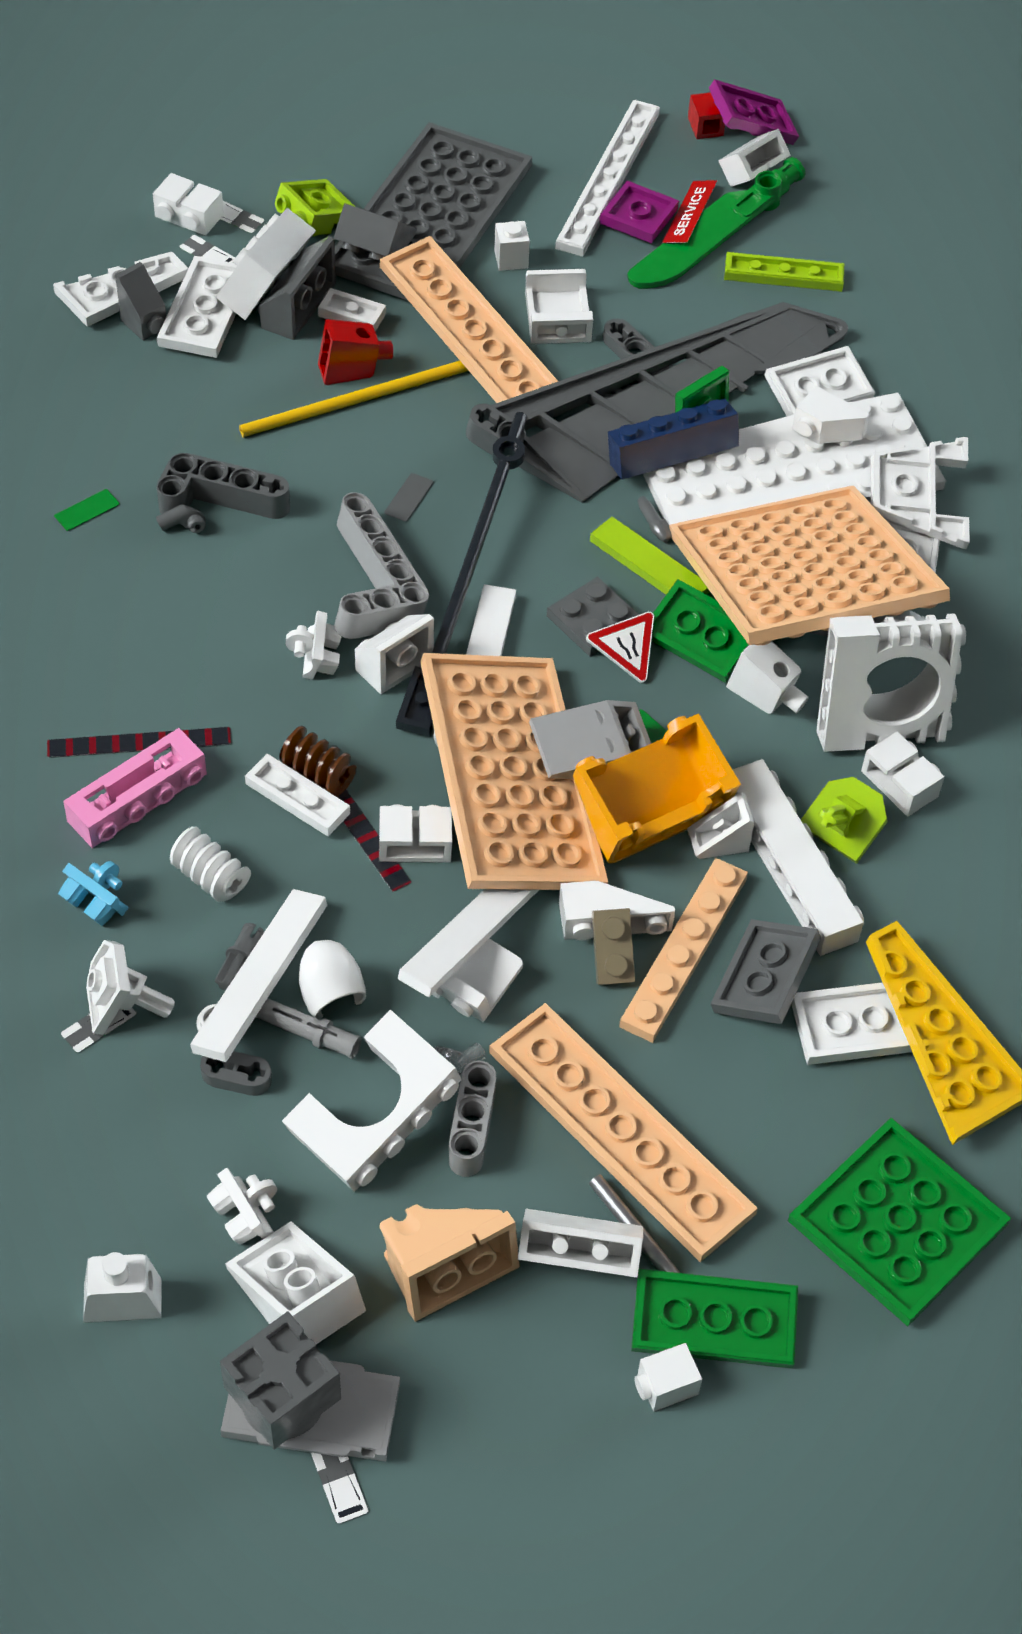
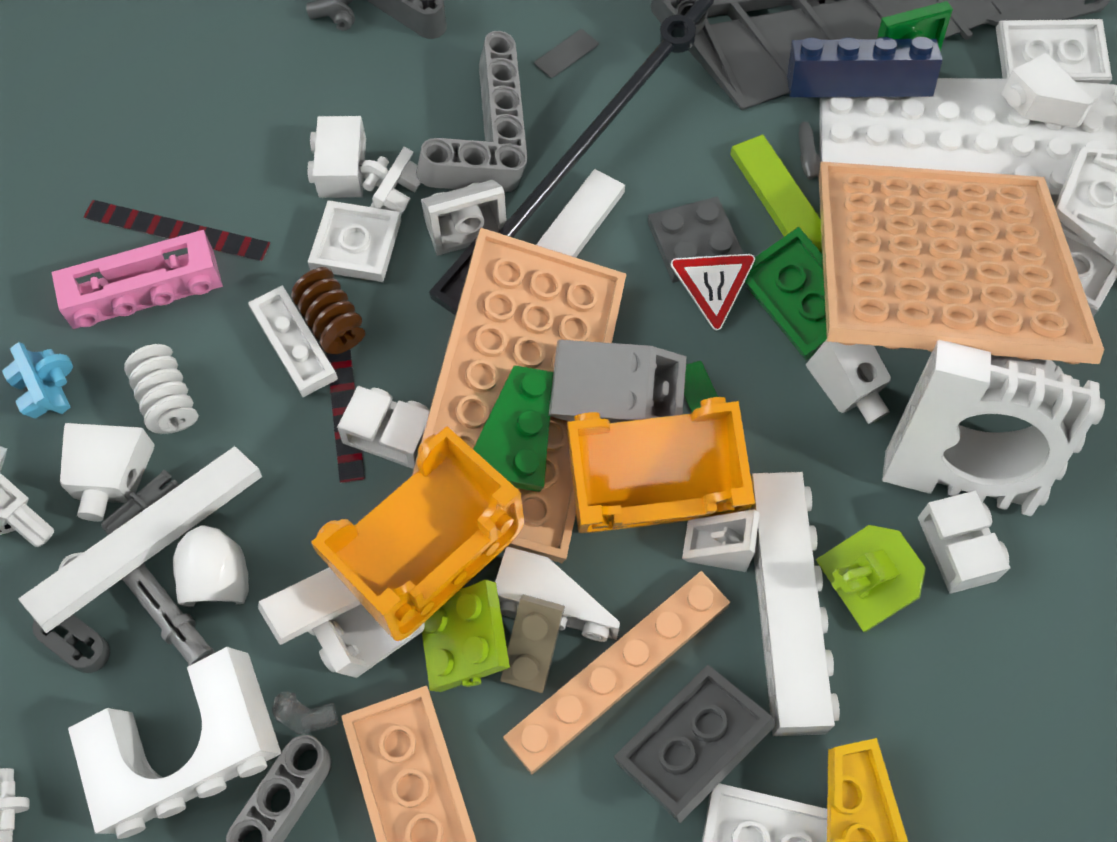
camera: 25 degrees right, 10 degrees up
(189, 936) = (102, 465): none -> white torso
(258, 638) = (337, 152): none -> white piece
(309, 700) = (355, 240): none -> white plate
(504, 881) = (425, 535): none -> light orange windscreen
(529, 800) = (518, 429): none -> green wing
(558, 959) = (465, 638): none -> lime plate

